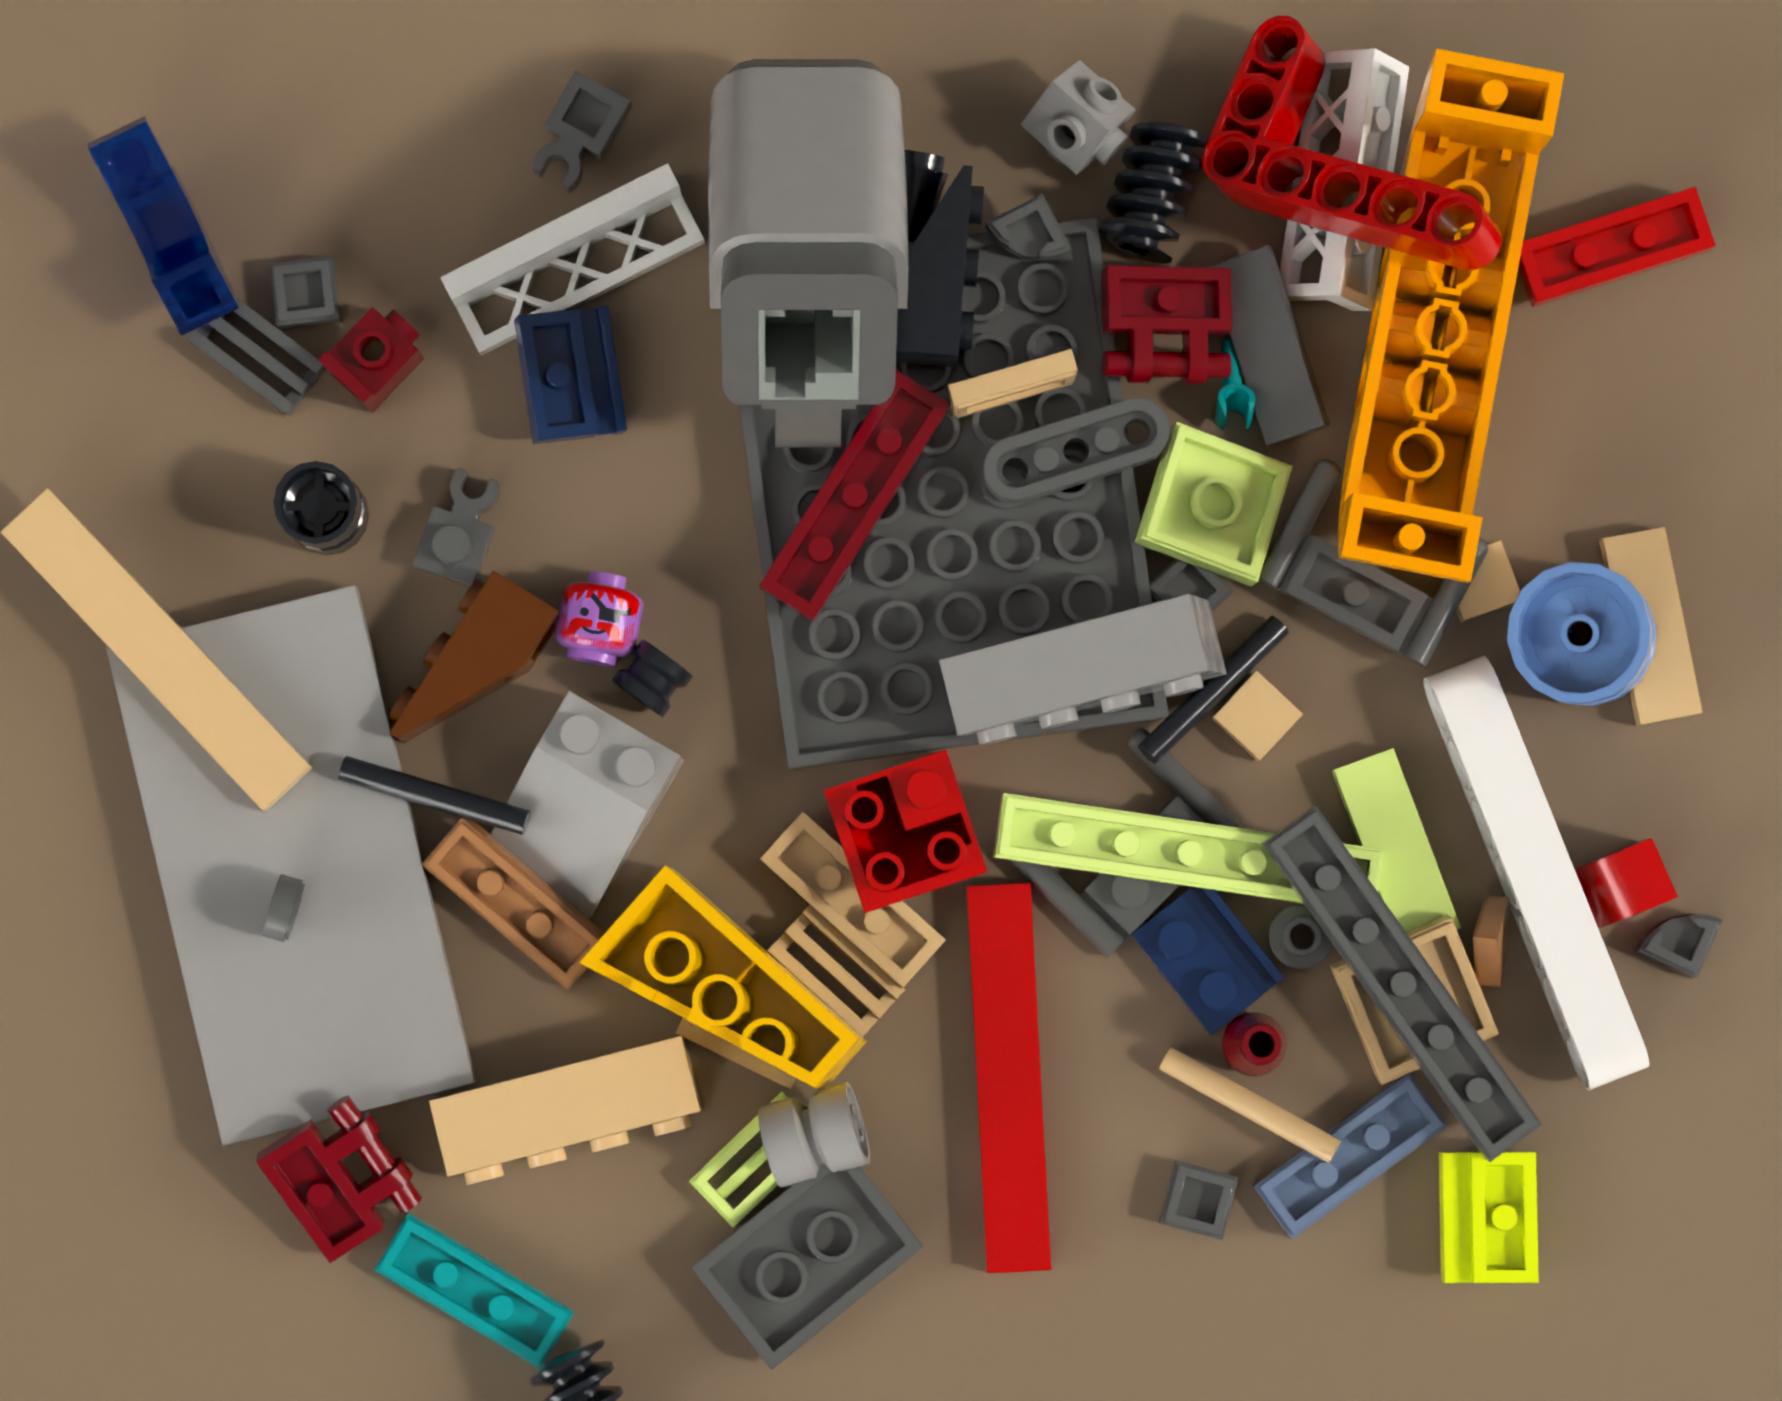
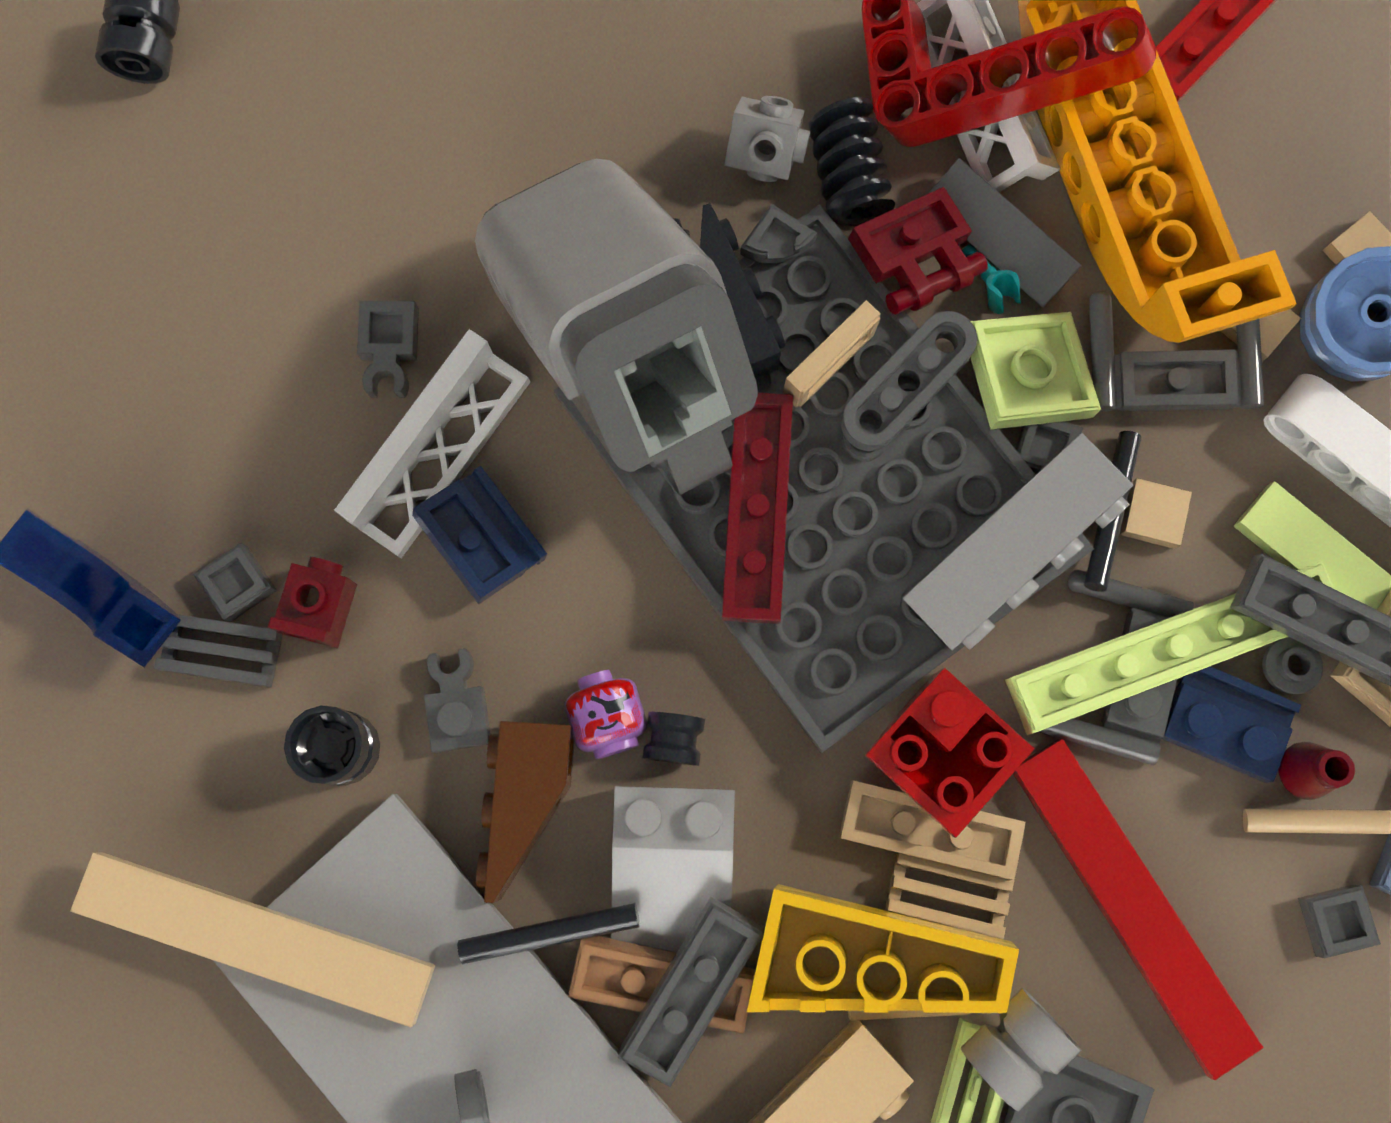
camera: 25 degrees left, 5 degrees down
(538, 920) = (690, 991): none -> dark grey tile

